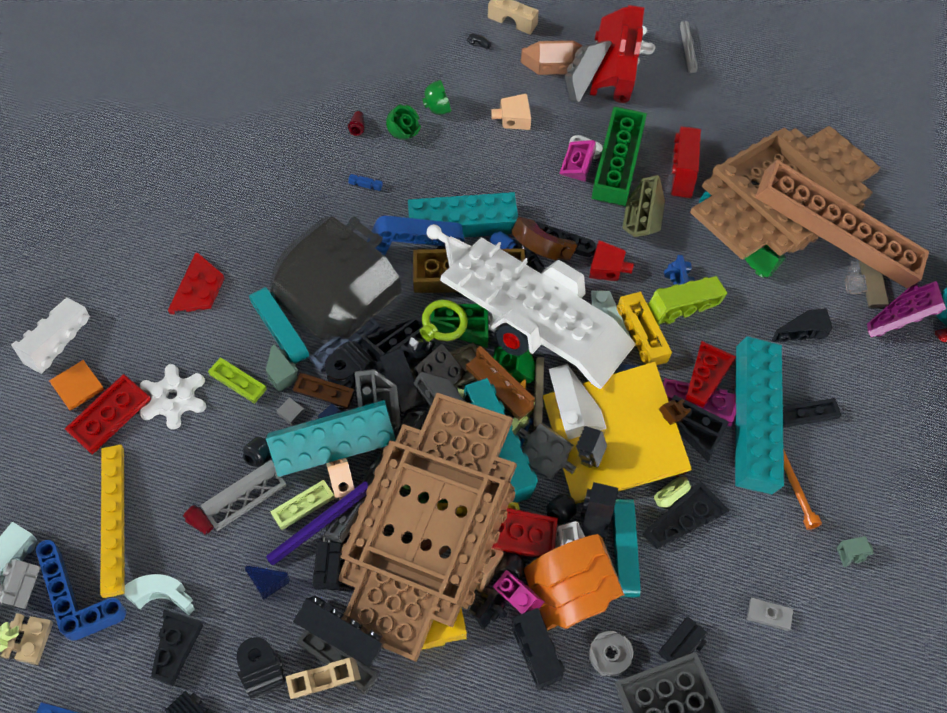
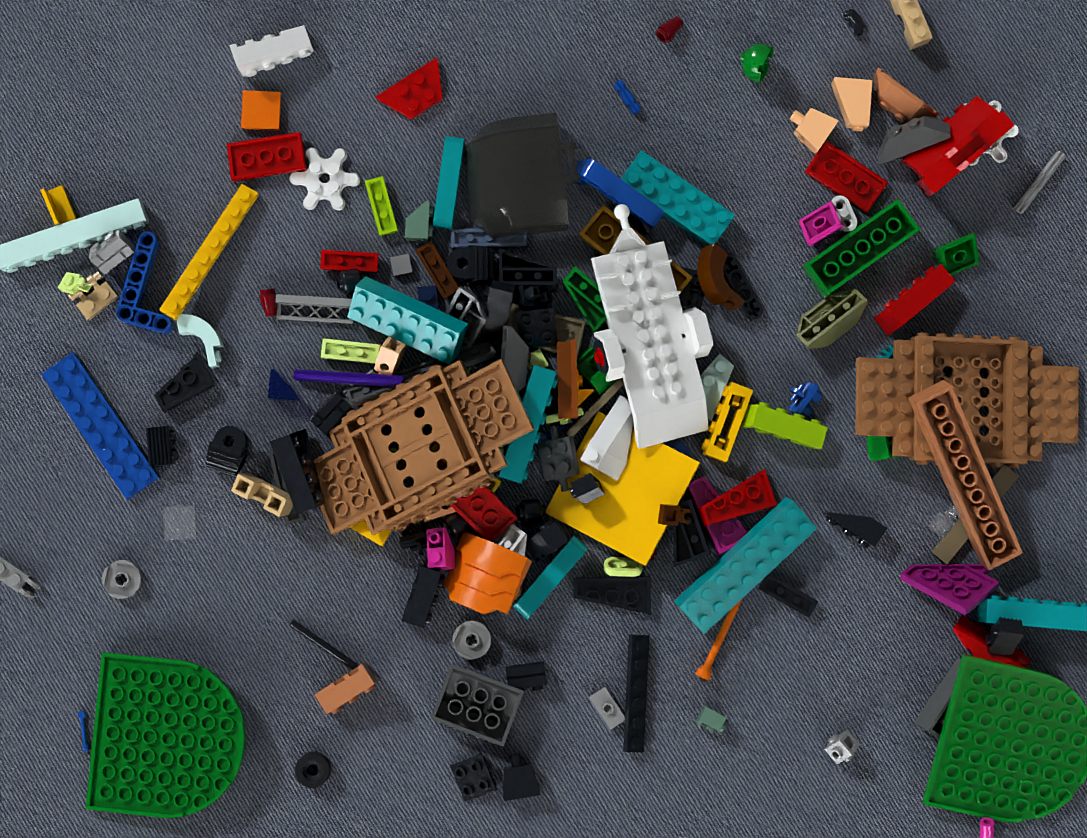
camera: 40 degrees right, 25 degrees up
(234, 443) = (349, 260): none -> red plate
(403, 122) = (705, 65): green cylinder -> none
(429, 331) = (550, 291): lime piece -> none
(506, 241) = (687, 252): blue brick -> none
(524, 79) = (854, 101): none -> light nougat slope
(562, 126) = (846, 176): none -> red tile
(609, 262) = (756, 341): red torso -> none
(683, 114) = (958, 254): none -> green slope
(780, 582) = (636, 693): none -> black plate

